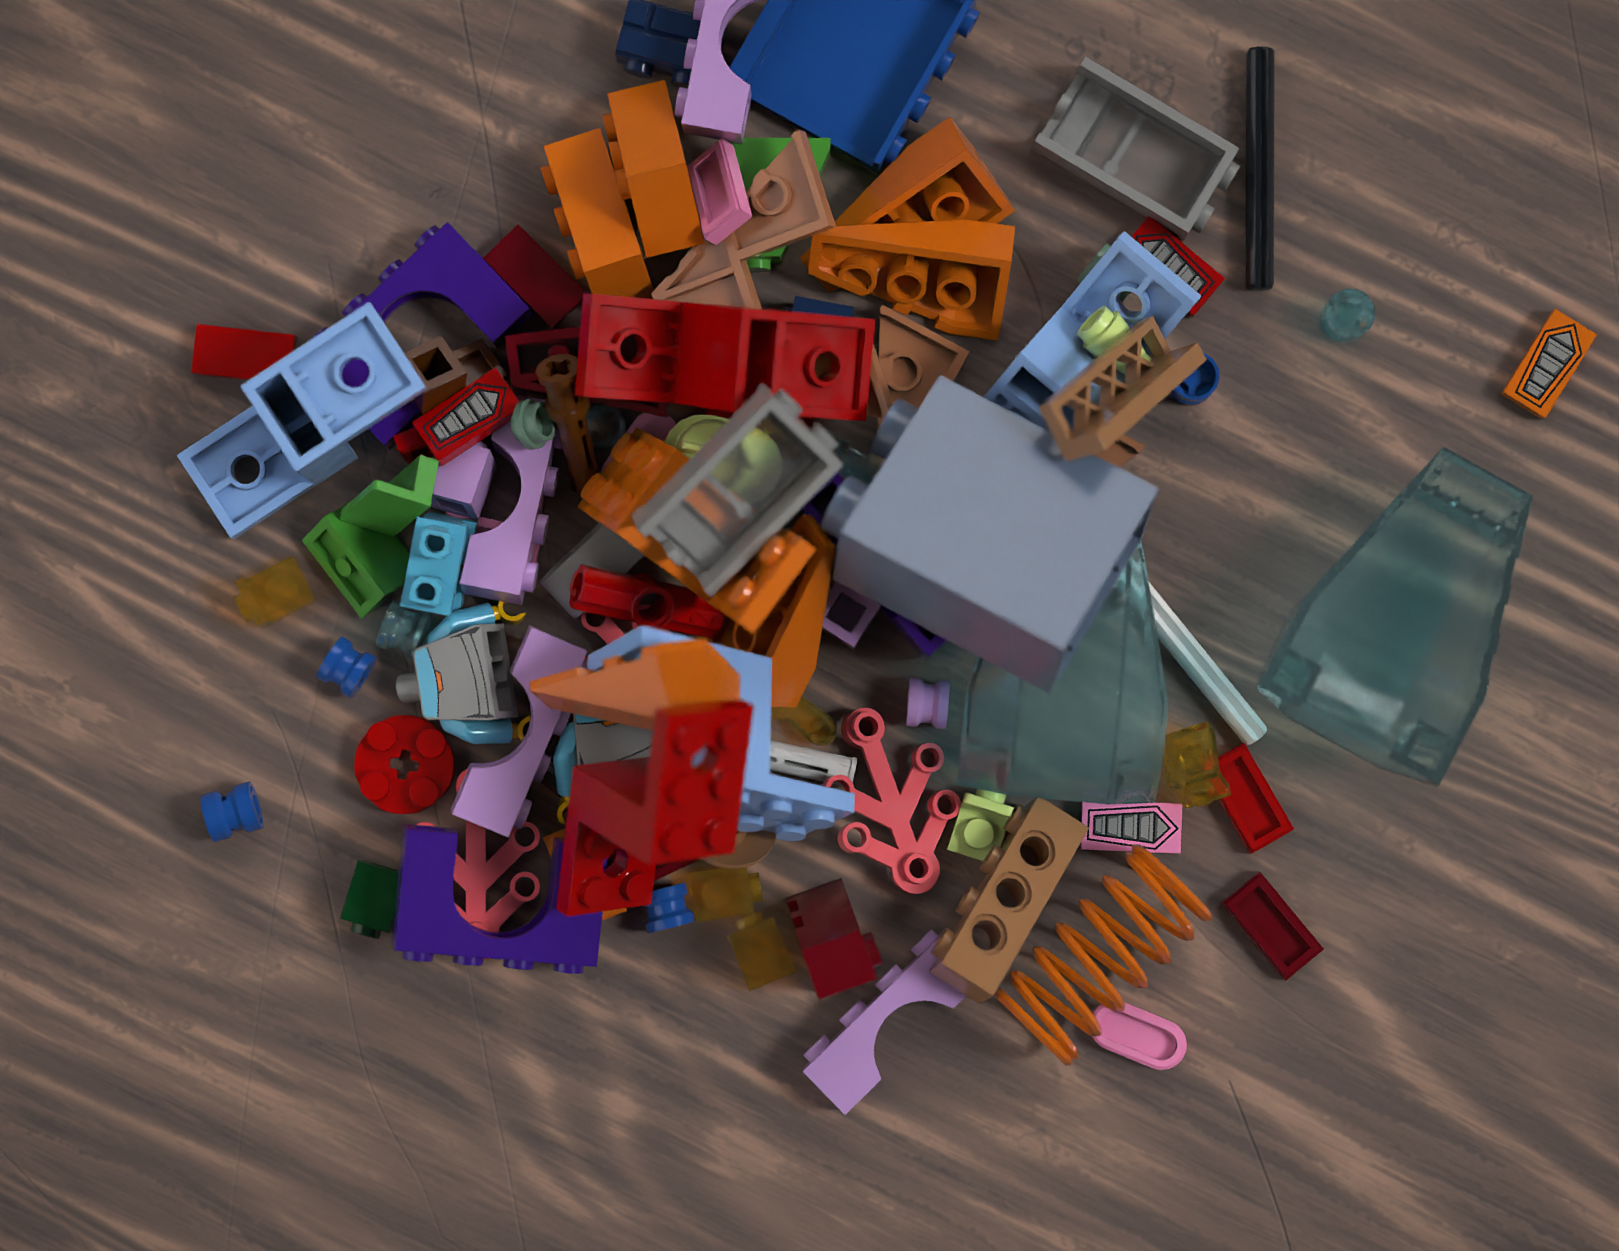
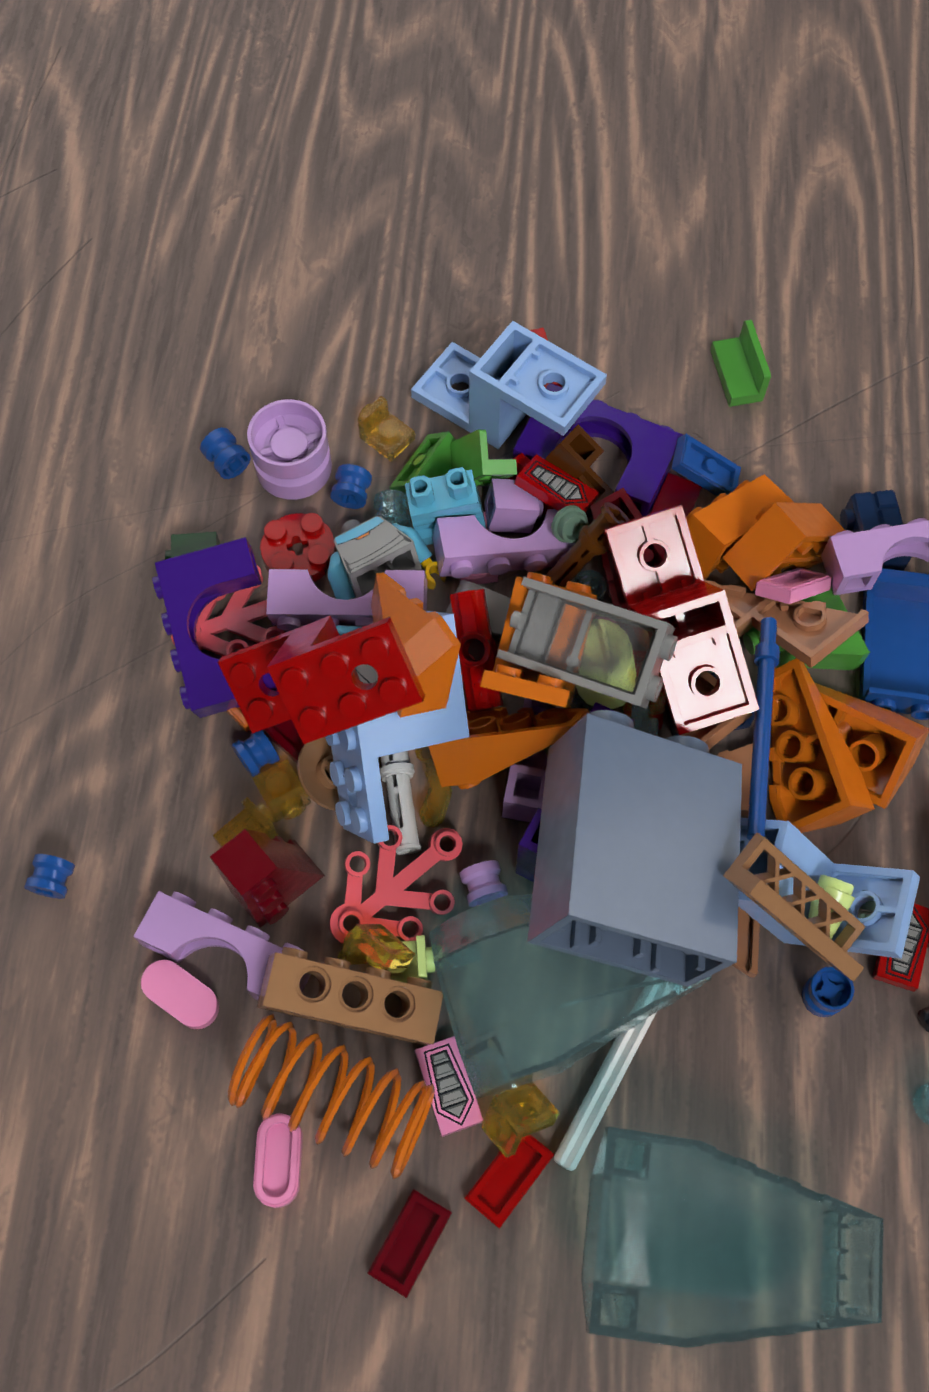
camera: 65 degrees right, 20 degrees down
(272, 728) = (290, 449): none -> lavender wheel
(361, 93) = (742, 366): none -> bright green panel
(500, 210) = (705, 466): none -> blue plate
(729, 1191) = (49, 876): none -> blue wheel
(806, 273) = (766, 659): none -> blue bar
(919, 1084) = (180, 994): none -> bright pink tile
(961, 847) = (376, 946): none -> clear yellow bracket

